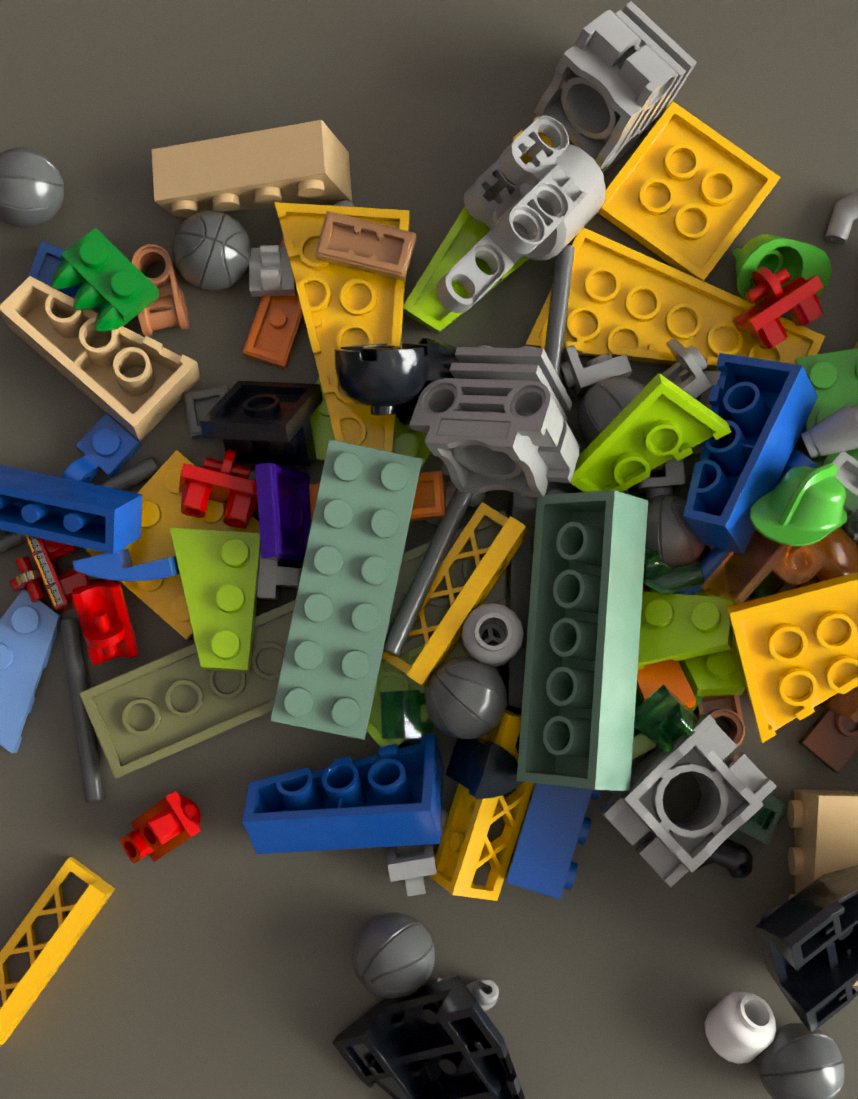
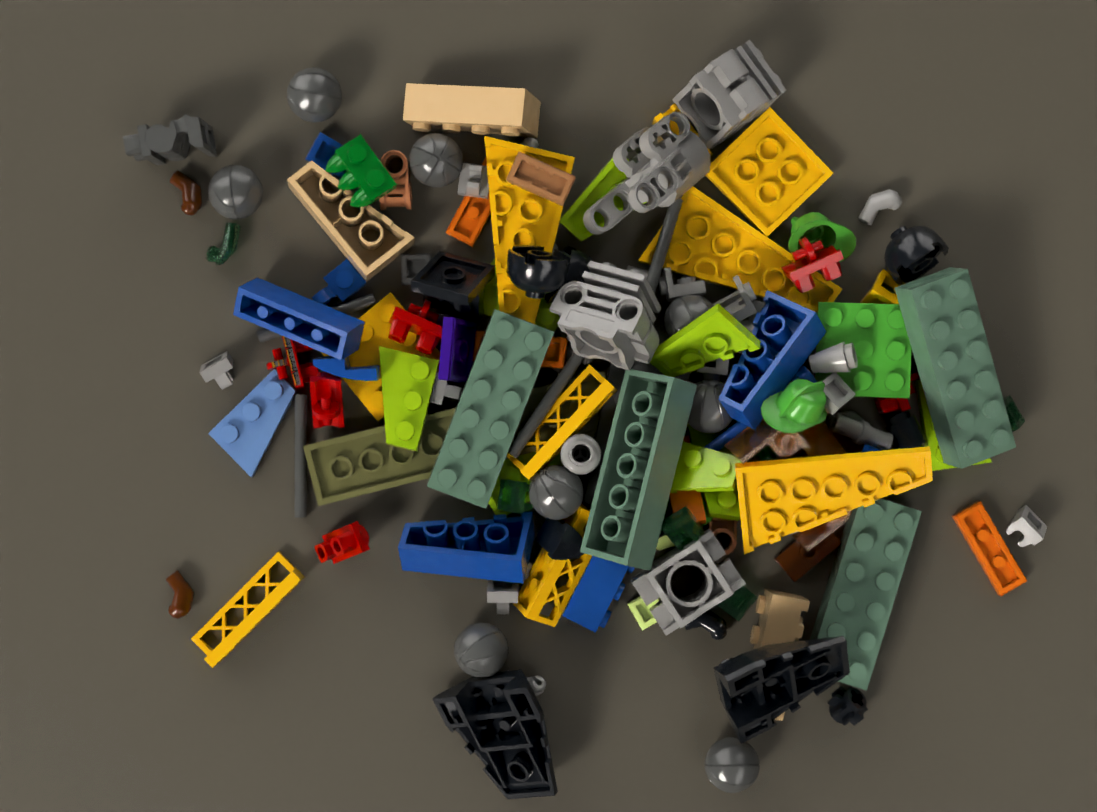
camera: 10 degrees right, 5 degrees up
(622, 855) = (641, 612): none -> yellowish green tile
(669, 580) = (701, 437): clear green arm -> none
(740, 1027) = (698, 733): white head -> none

